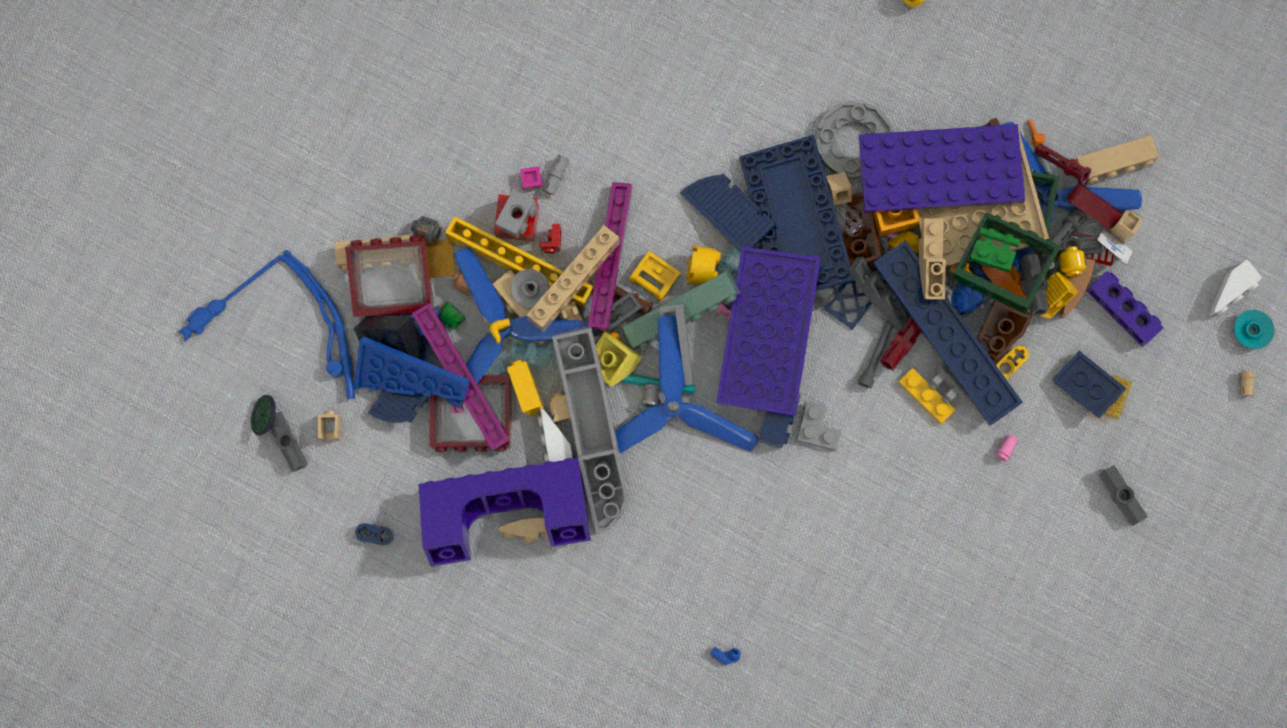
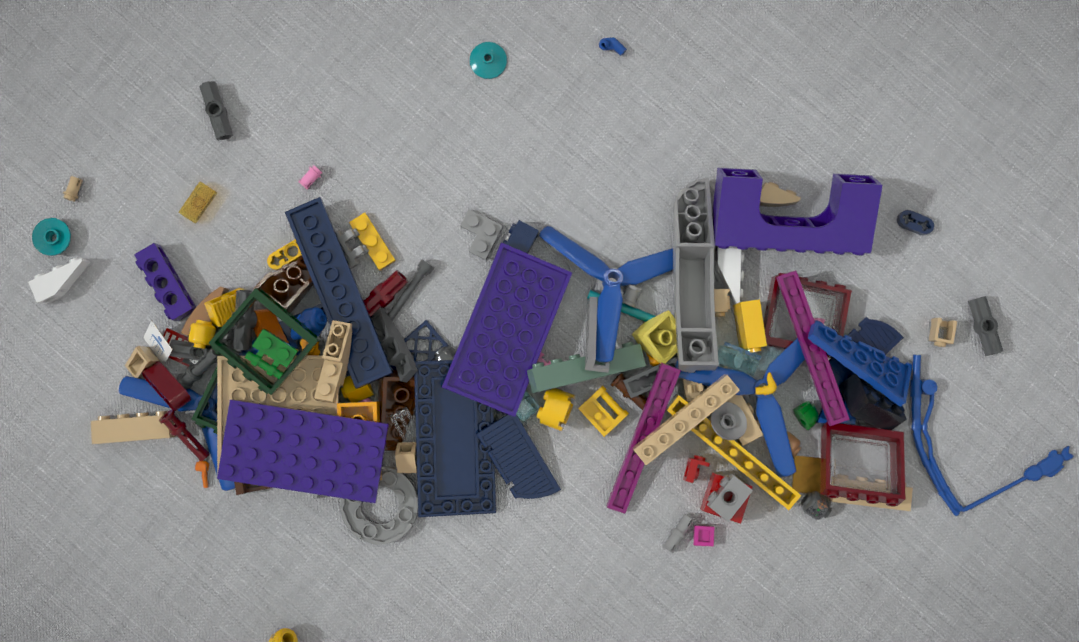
camera: 175 degrees left, 5 degrees up
(263, 415) = (1005, 355): dark green wheel -> none
(842, 610) = (488, 69): none -> teal dish
(1089, 384) = (218, 217): dark blue plate -> none

